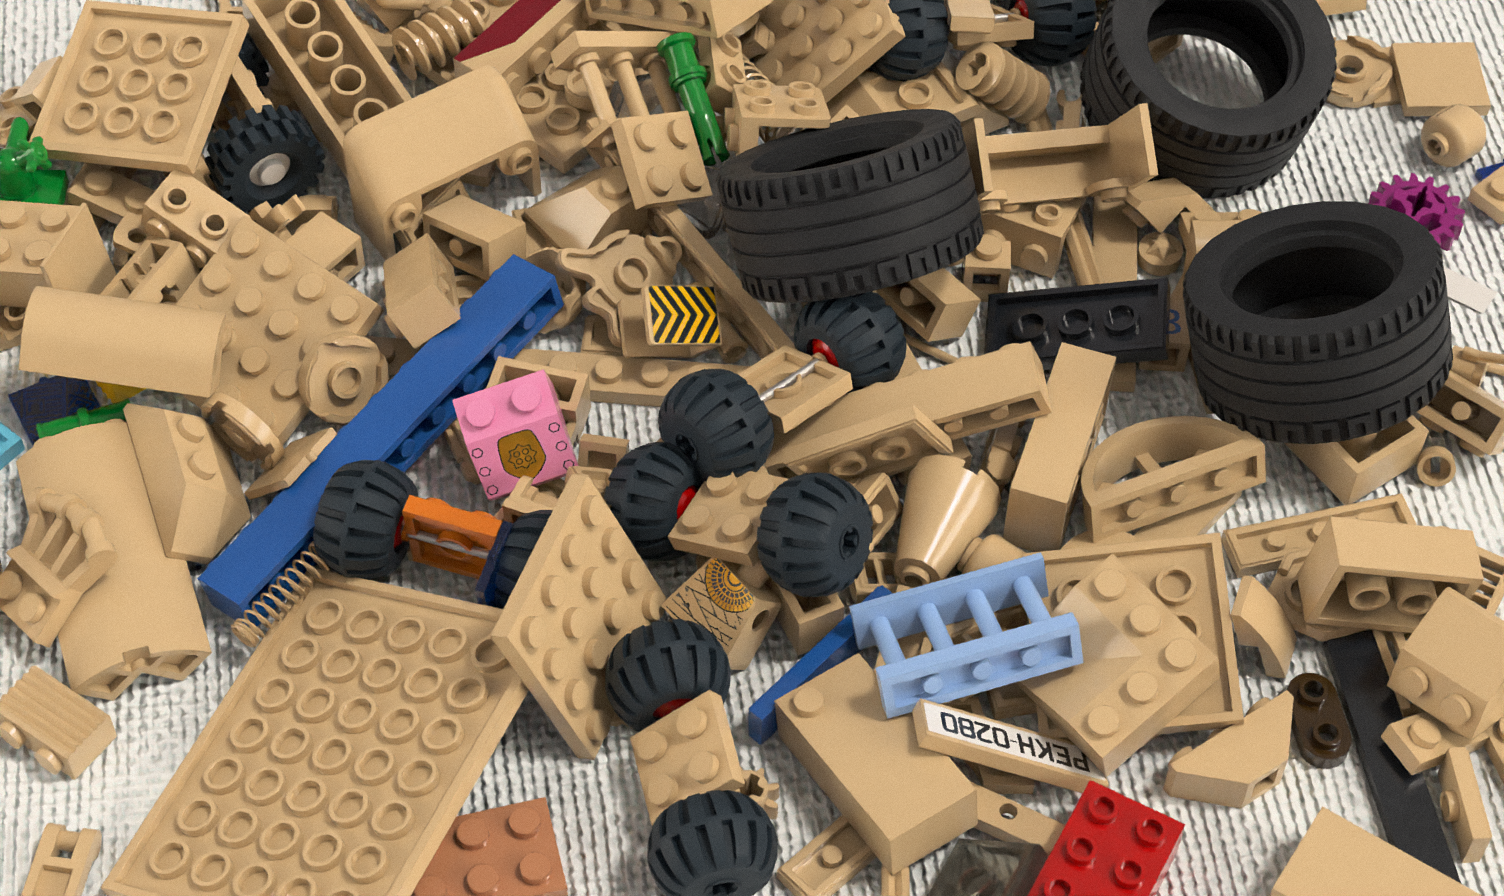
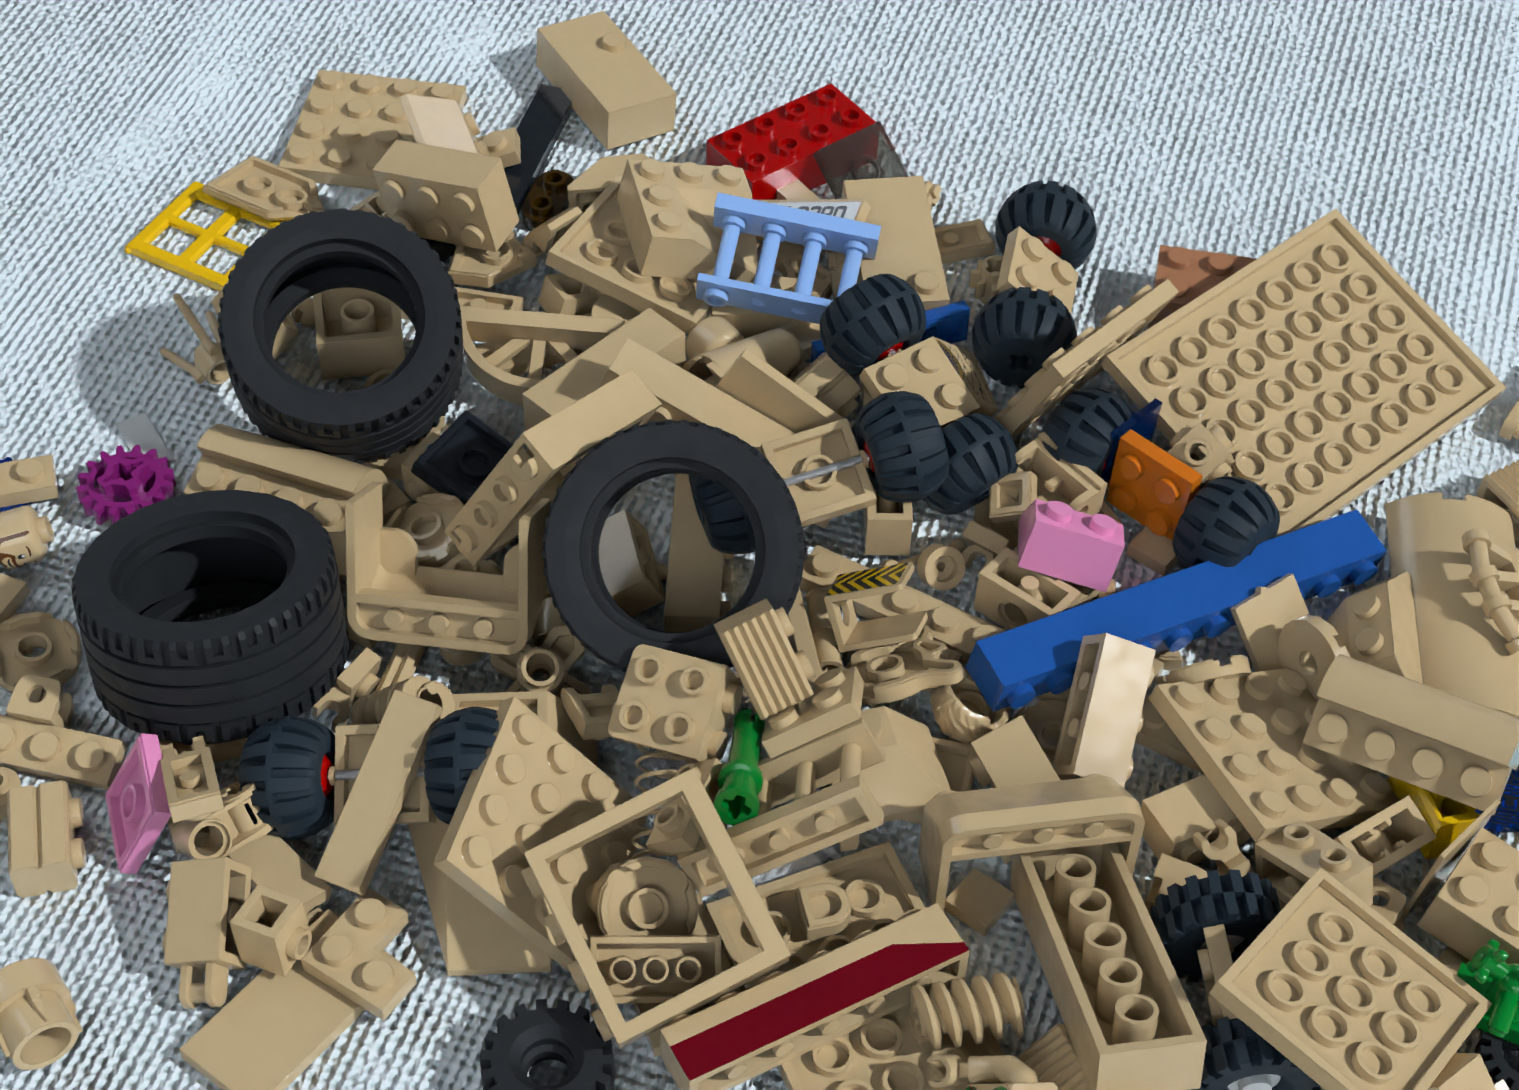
camera: 155 degrees left, 5 degrees down
(248, 635) = (1346, 505): tan piece -> none
(414, 561) = (1218, 458): none -> tan brick
(640, 422) = (941, 566): none -> tan tile
(717, 139) = (764, 658): none -> tan brick
(991, 151) = (519, 481): none -> tan window
(1111, 253) = (427, 526): none -> tan tile
(1463, 805) = (502, 109): tan plate -> none

